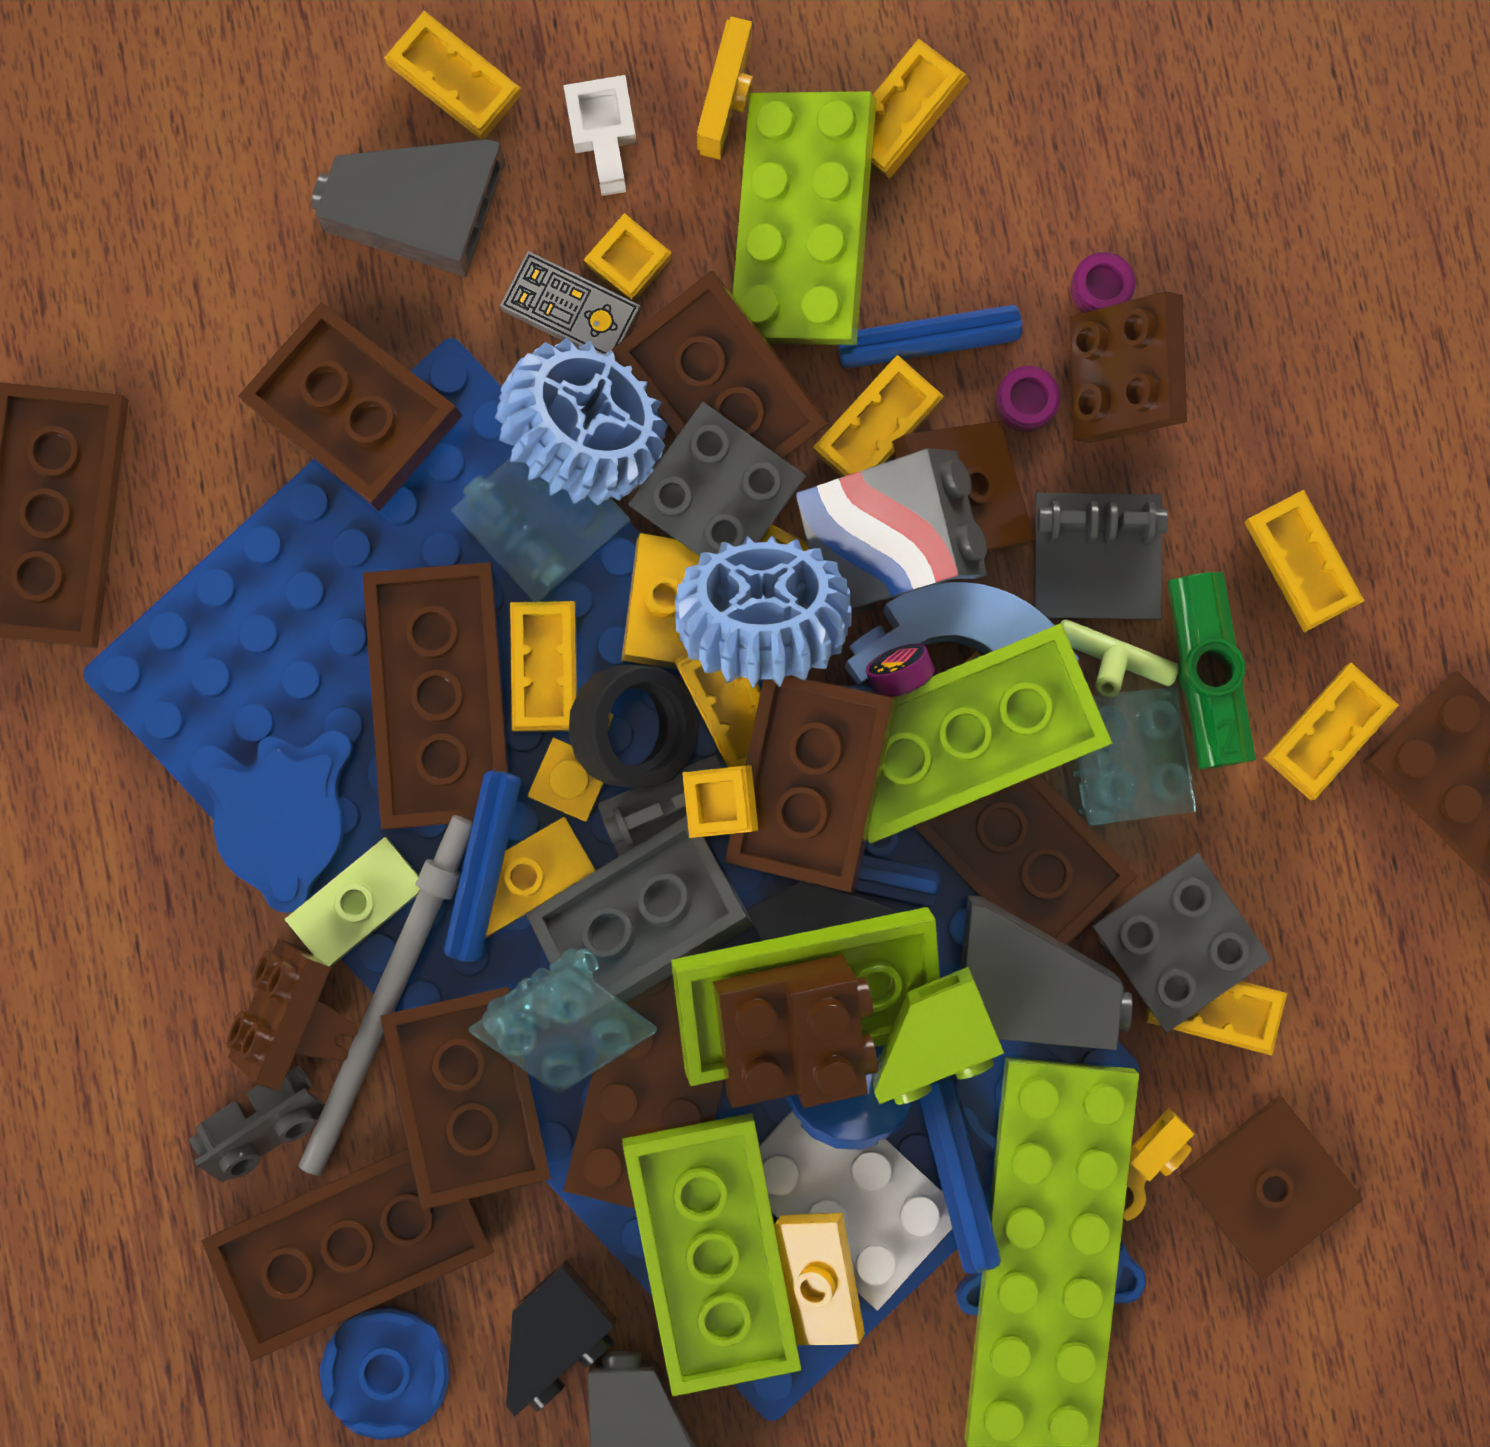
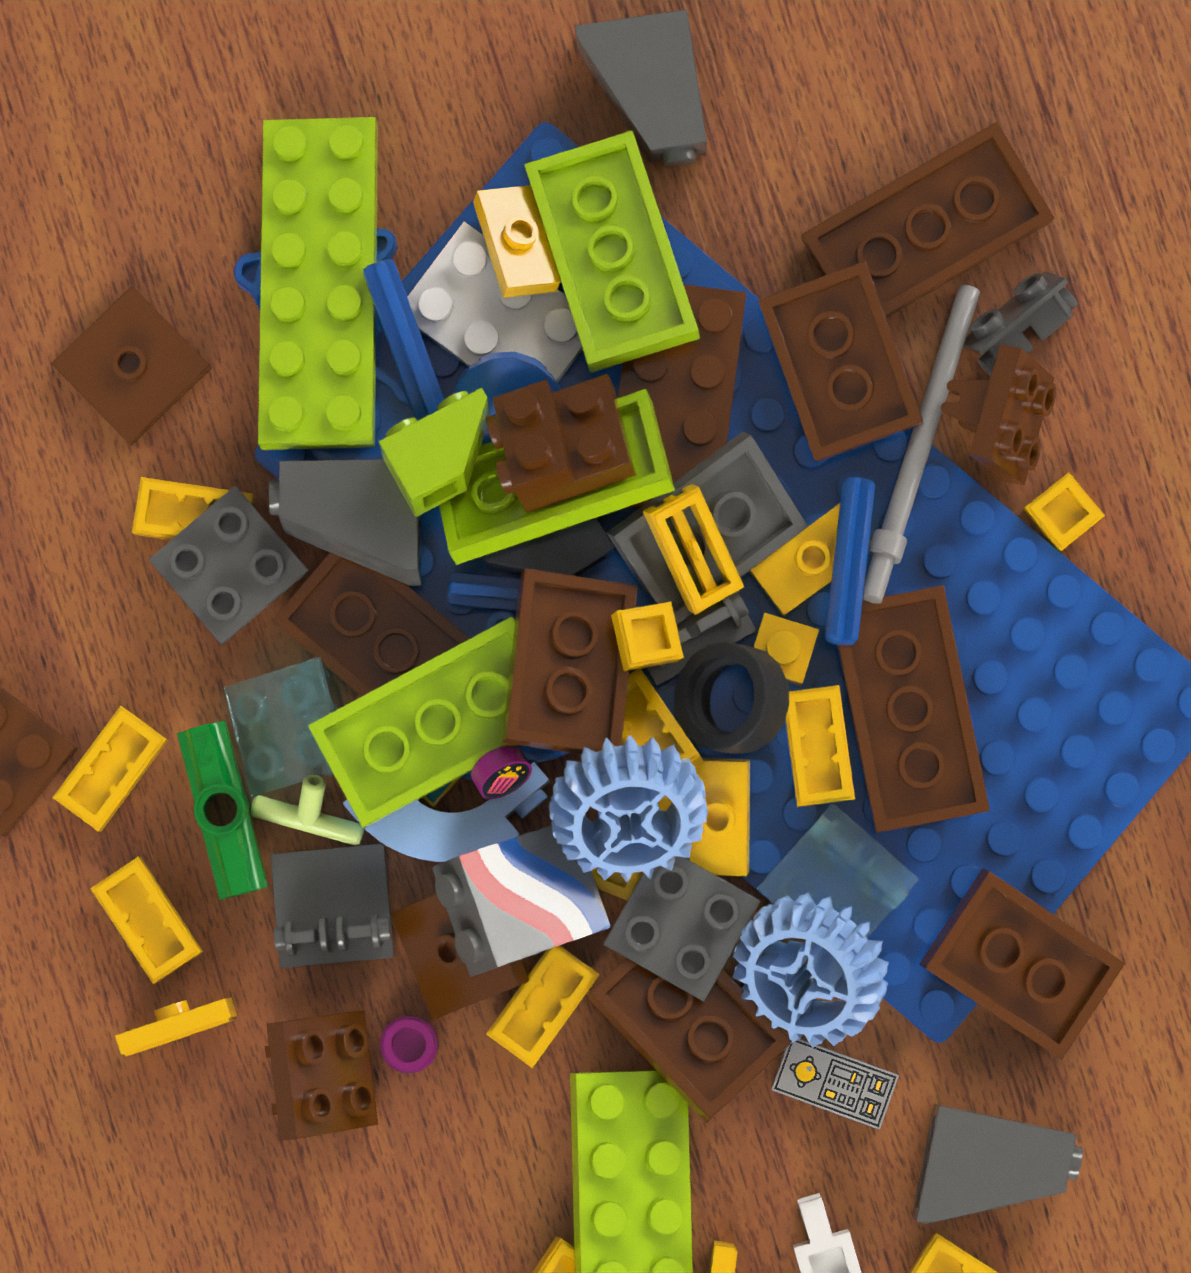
camera: 175 degrees left, 0 degrees up
(234, 907) = (1063, 512): none -> yellow tile
(280, 816) = (1036, 589): blue tile -> none
(355, 903) = (958, 520): yellowish green plate -> none
(385, 1372) = (881, 126): blue tile -> none
(550, 1332) = (742, 174): black slope -> none
(561, 1023) = (765, 431): clear light blue hinge -> none
(628, 258) = (787, 1135): yellow tile -> none
(674, 940) = (673, 508): none -> yellow tile
(933, 336) = (500, 1092): blue axle -> none
(1102, 282) = (350, 1158): magenta tile -> none
(1158, 1149) = (233, 385): yellow plate -> none
(1282, 443) = (175, 1023): none -> yellow plate

